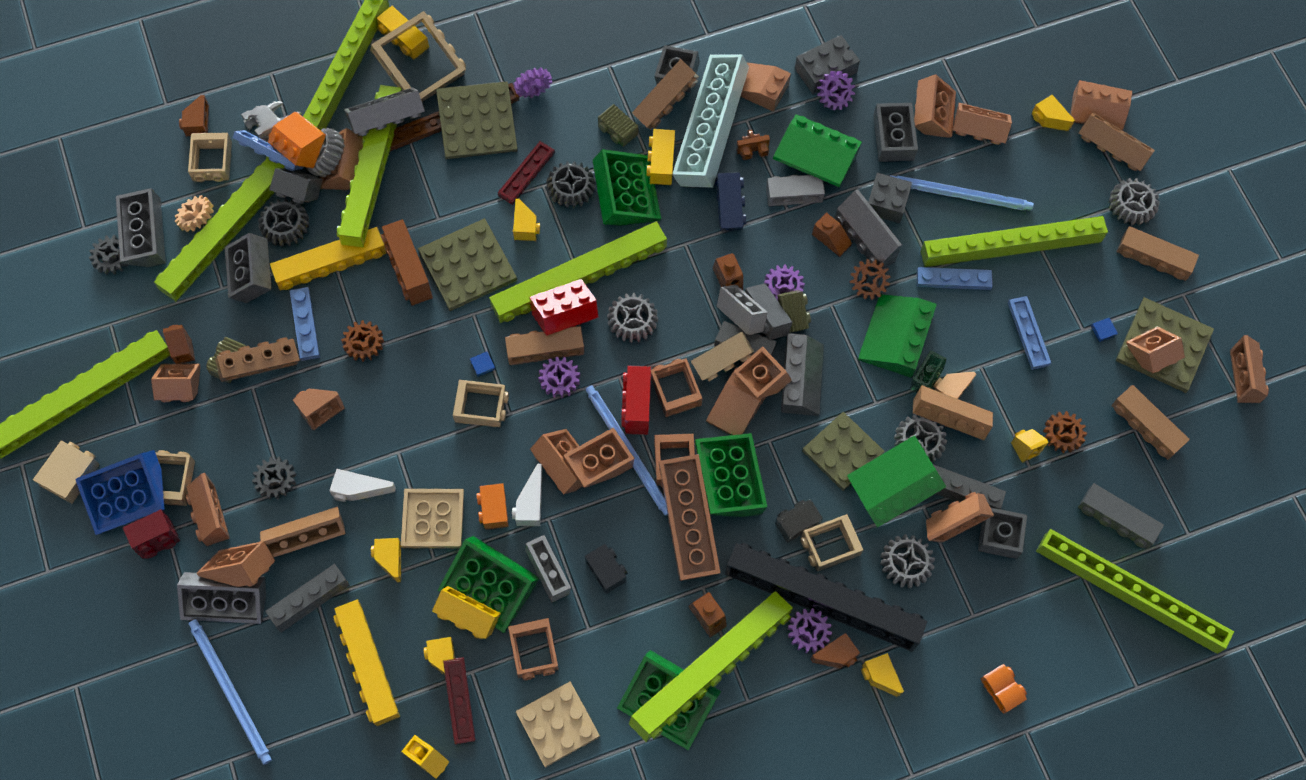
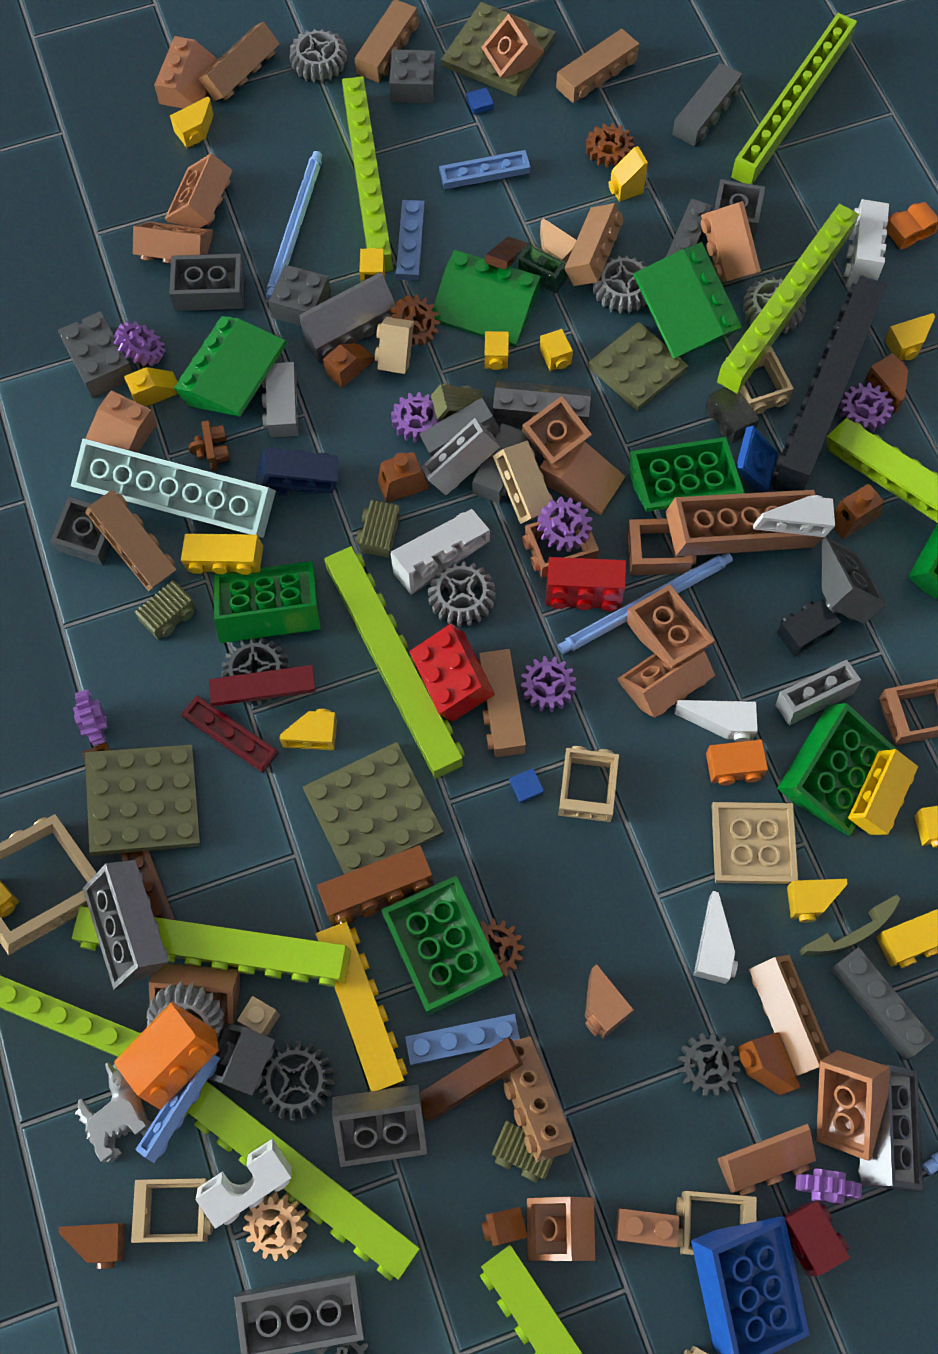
camera: 85 degrees left, 0 degrees up
(171, 431) = (647, 1228): none -> nougat brick
(183, 547) = (828, 1186): none -> medium lavender gear
(222, 199) = (225, 1200): none -> white arch
(273, 321) = (469, 1079): none -> reddish brown tile
(273, 514) = (768, 1063): none -> dark orange slope
(325, 198) = (258, 1016): none -> tan brick
(352, 563) = (825, 946): none -> olive slope
(363, 301) = (442, 945): none -> green slope
(554, 184) = (262, 685): none -> dark red tile
(643, 597) = (848, 583): none -> dark grey slope
(670, 304) = (419, 559): none -> white wedge
(685, 260) = (379, 529): none -> olive brick
(689, 556) = (804, 517): none -> white slope
(690, 381) = (559, 532): none -> medium lavender gear
(751, 531) = (756, 460): none -> blue tile
(802, 101) = (151, 385): none -> yellow slope
(843, 263) = (394, 345): none -> tan brick
(848, 341) = (496, 350): none -> yellow brick
(851, 386) = (556, 350): none -> yellow brick
(906, 564) = (787, 299): none -> lime brick
(912, 244) = (371, 263): none -> yellow slope
(938, 343) = (505, 253): none -> reddish brown tile
(978, 644) = (868, 242): none -> white wedge
(1119, 274) = (412, 76): none -> dark grey brick

